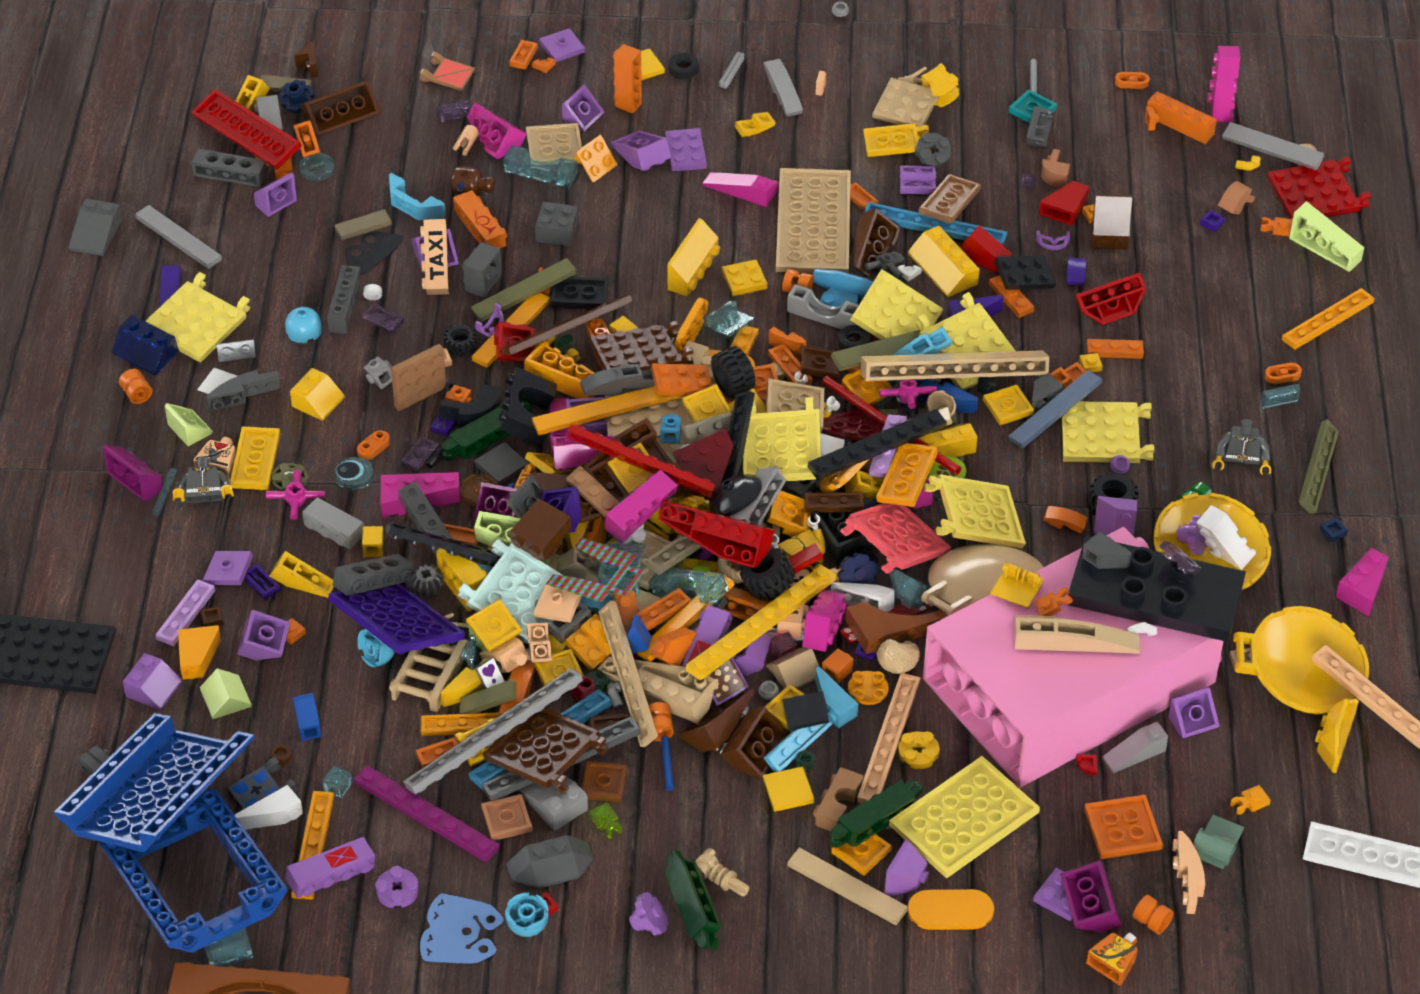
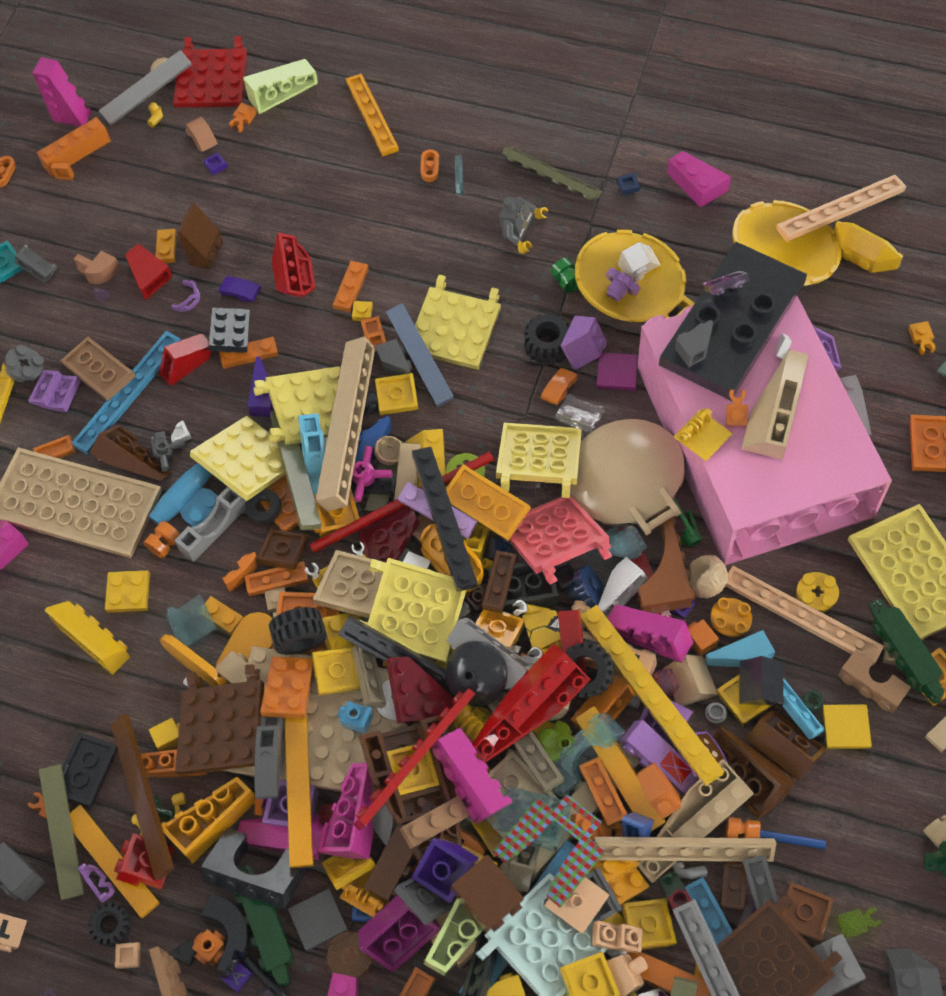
camera: 70 degrees left, 15 degrees up
(944, 262) = (183, 397): yellow slope -> none
(1036, 536) = (578, 417): none -> clear plate
(1120, 464) = (502, 322): medium lavender plate -> none

